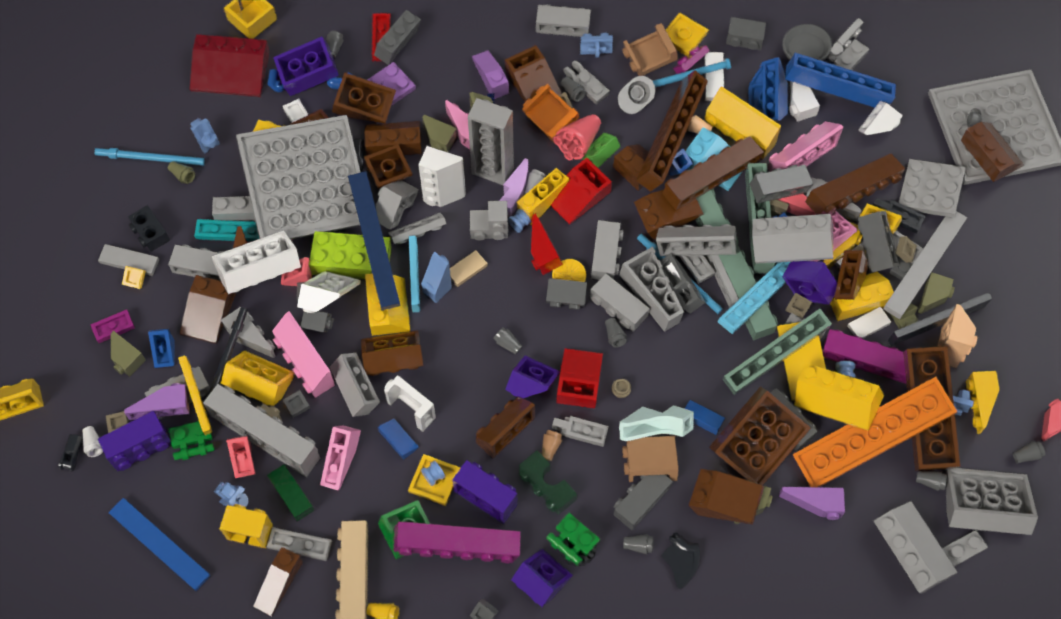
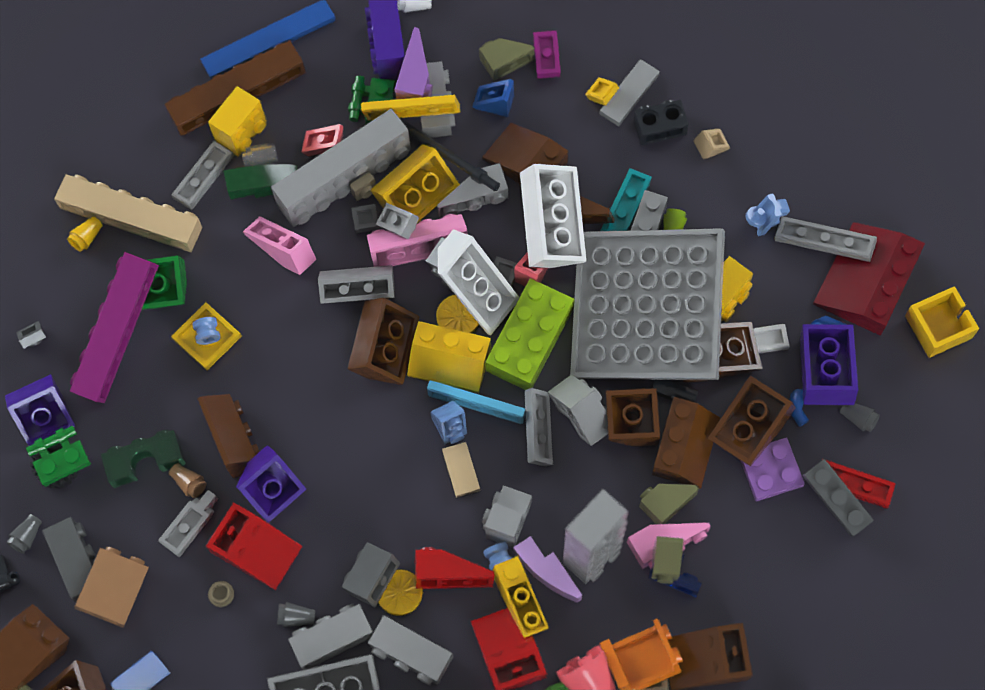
camera: 115 degrees right, 5 degrees up
(114, 153) = (785, 113): dark azure bar -> none
(116, 421) = (427, 30): dark tan plate -> none
(155, 194) = (711, 143): none -> tan slope
(183, 173) = (726, 179): olive cone -> none
(193, 262) = (594, 160): light grey brick -> none
(211, 93) = (826, 239): none -> light grey tile
(214, 548) = (255, 77): none -> reddish brown brick
(231, 494) = (282, 117): medium blue hips -> none
(232, 192) = (674, 219): none -> lime cone
(269, 502) = (260, 155): none -> clear brick
(278, 580) = (171, 142): slope -> none
(296, 365) = (397, 220): none -> light grey plate
(351, 312) = (454, 315): none -> yellow wheel
(374, 241) = (529, 359): dark blue tile -> none
(398, 438) = (275, 314): blue slope -> none
(424, 408) = (305, 340): white panel -> none
(441, 177) = (583, 462): white slope -> none
(485, 491) = (158, 380): dark purple brick -> none
(491, 74) = (741, 605): medium lavender slope -> none
(507, 340) = (340, 481): dark grey cone -> none
(533, 179) = (548, 598): light grey cone -> none
(649, 422) = (156, 599): light aqua arch -> none

